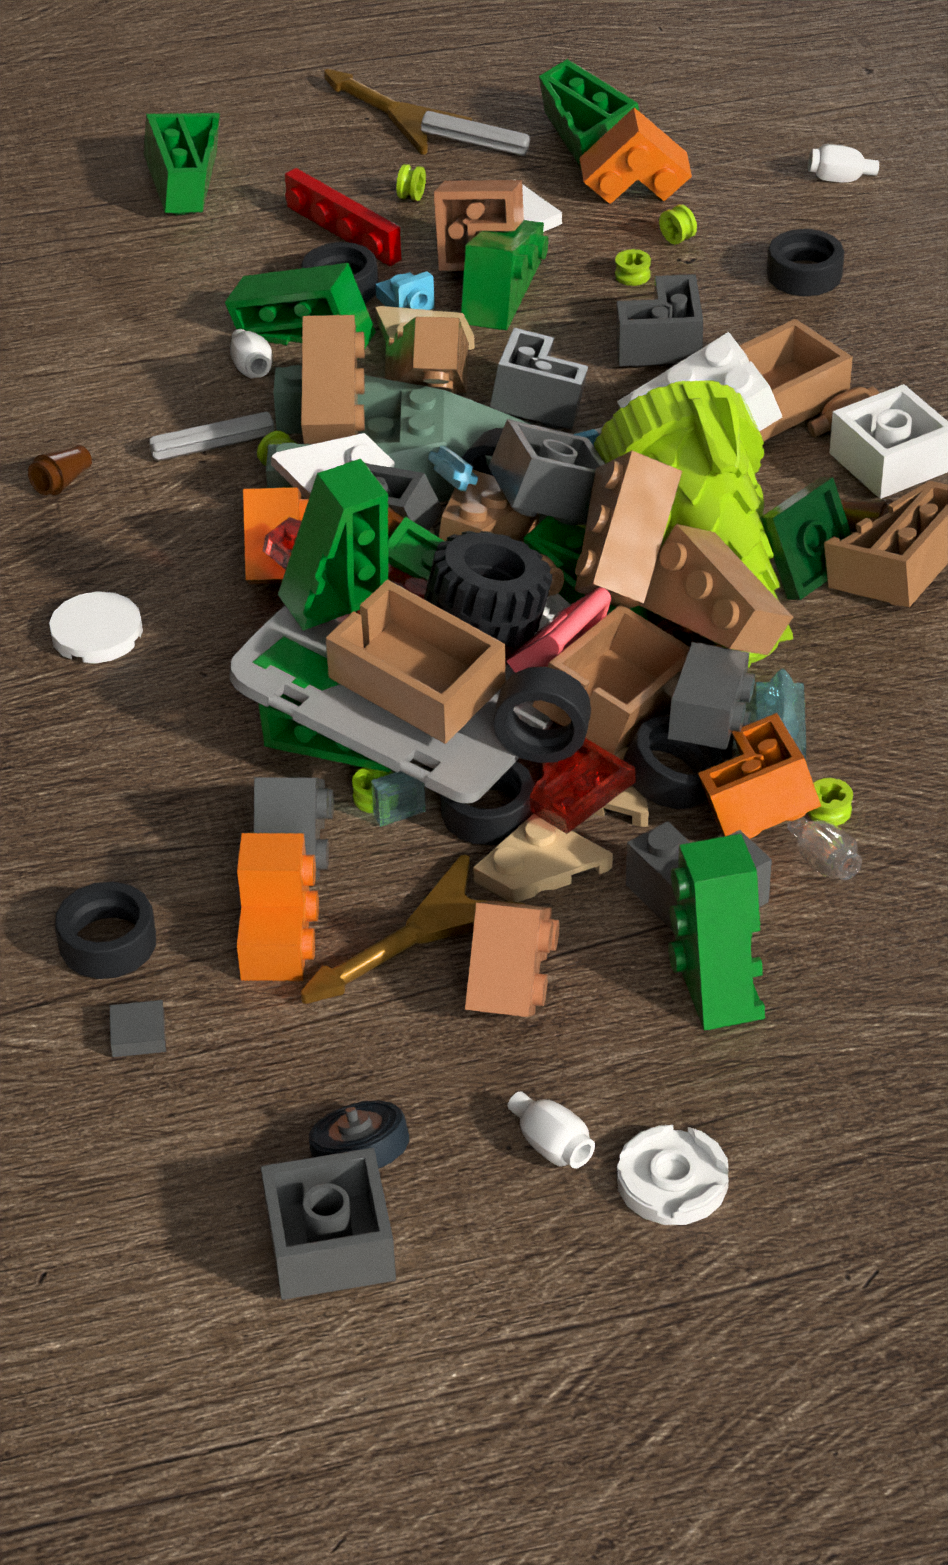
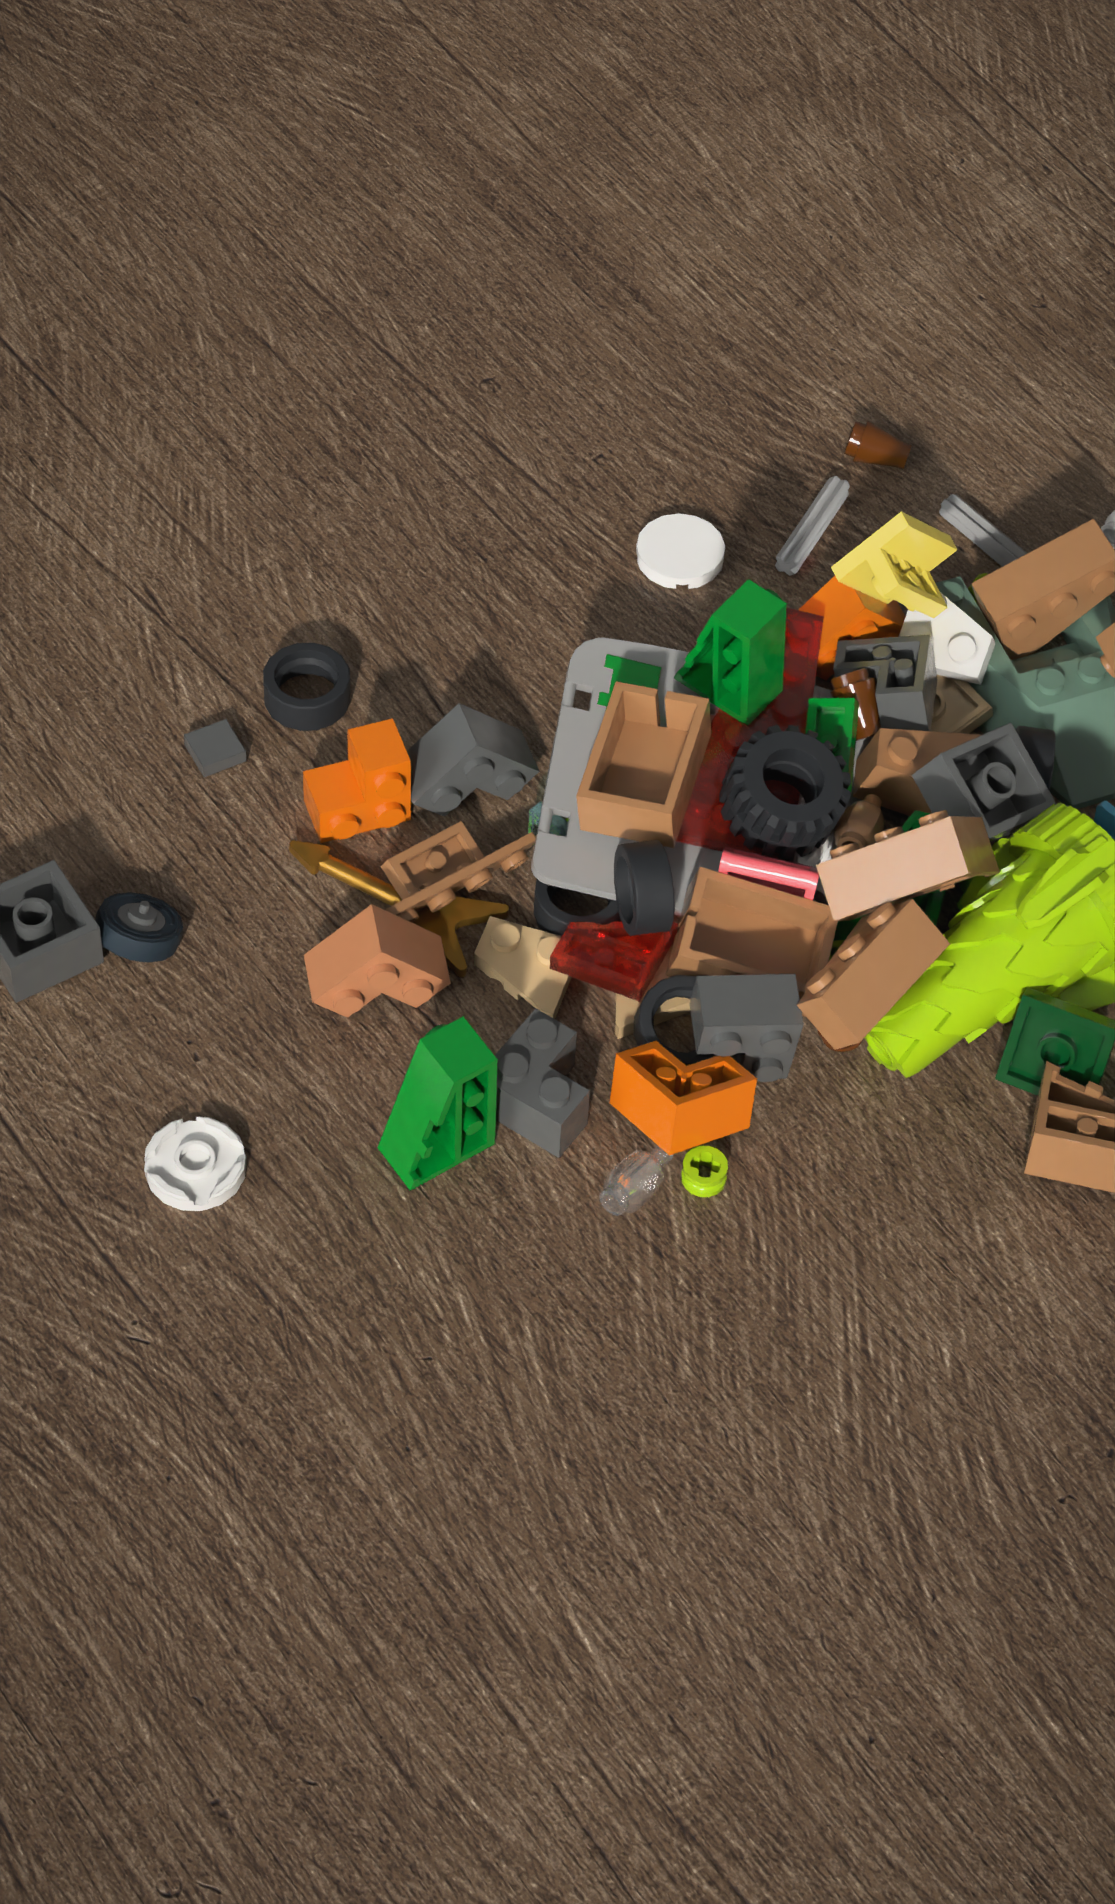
camera: 65 degrees right, 10 degrees up
(123, 535) = (812, 525): none -> light grey axle
(294, 448) = (898, 564): none -> light yellow bracket
(418, 877) = (444, 864): none -> medium nougat bracket
(453, 468) = (980, 721): medium azure axle -> none
(553, 1130) = (202, 1060): white plant -> none
(787, 701) = (803, 1104): clear light blue tile -> none

